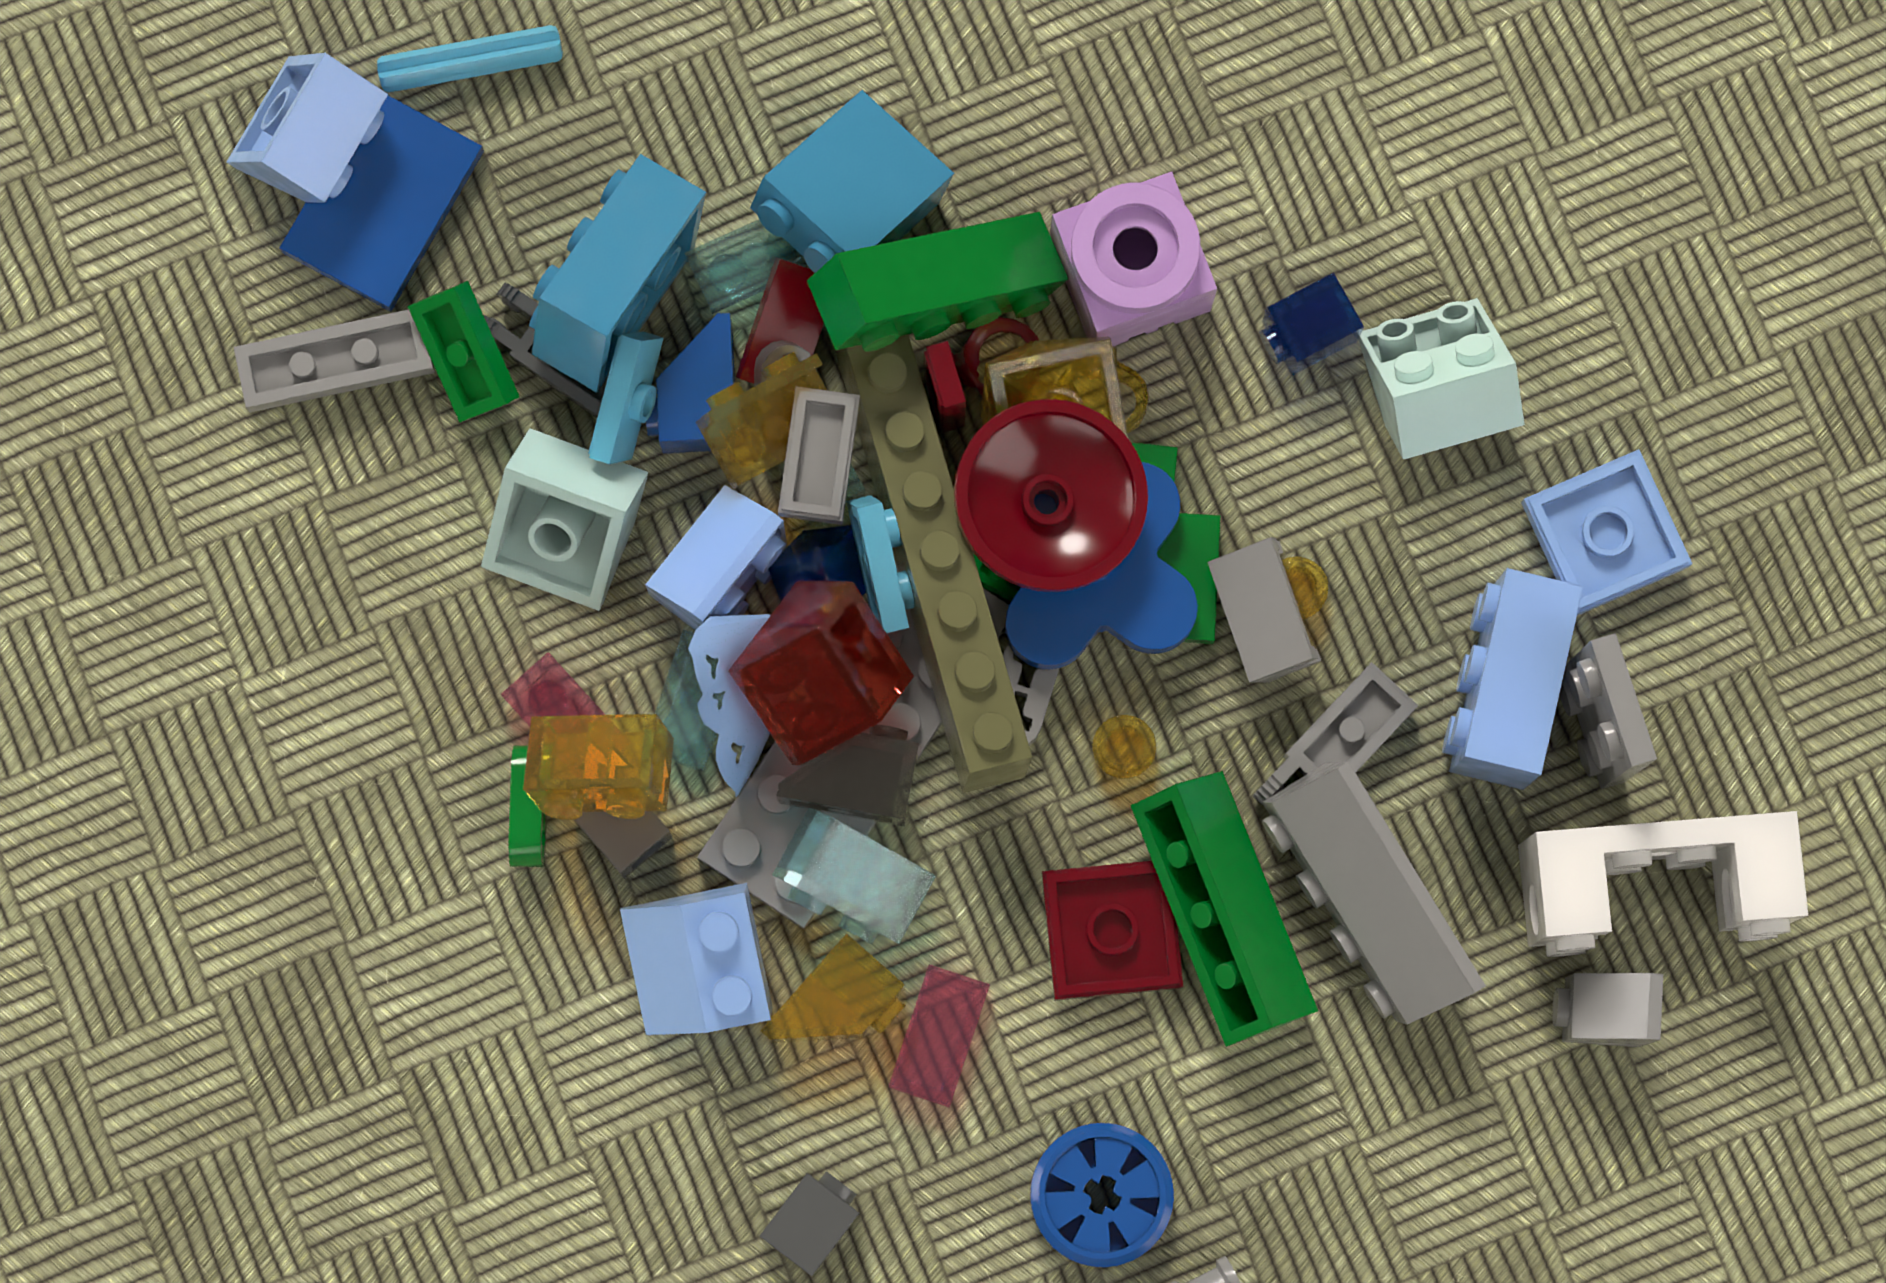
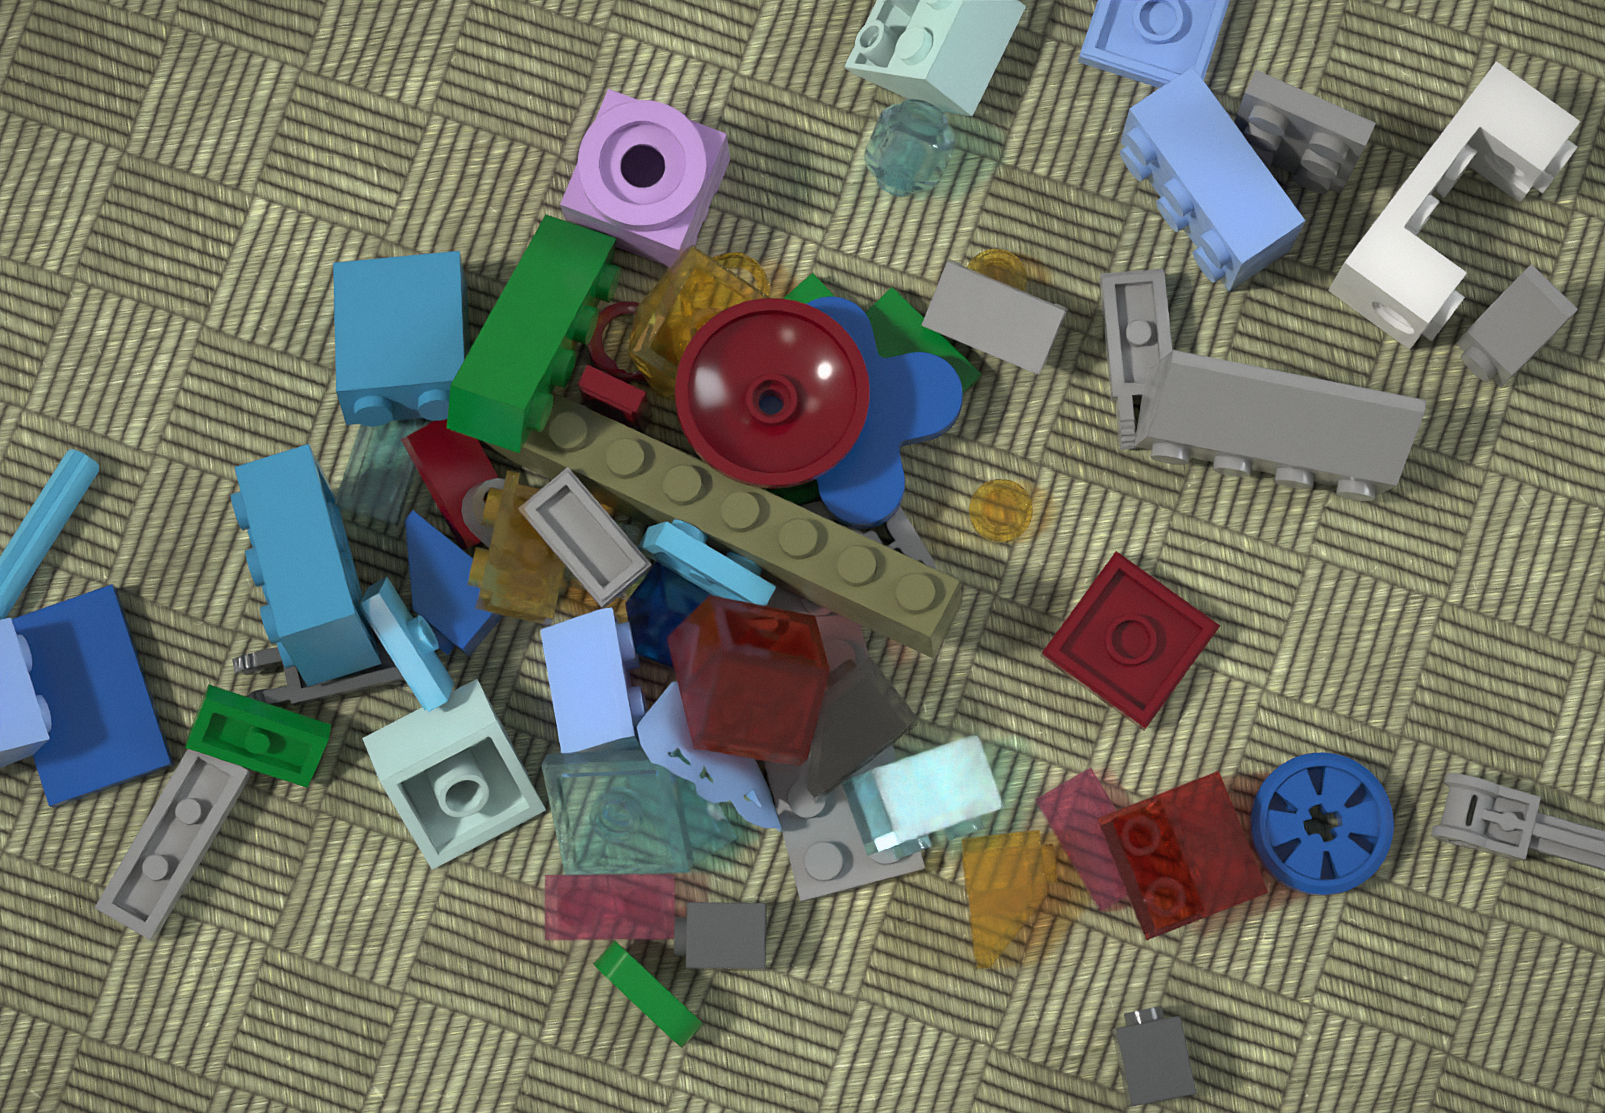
camera: 40 degrees left, 0 degrees up
(598, 765) = (670, 911): clear yellow brick -> none
(637, 655) = (617, 813): none -> clear light blue plate
(697, 962) = (882, 971): light blue slope -> none
(980, 1109) = (1182, 856): none -> clear red slope
(1224, 908) = (1190, 543): green brick -> none
(1310, 325) = (809, 94): clear blue brick -> none
(1336, 434) = (909, 147): none -> clear light blue head

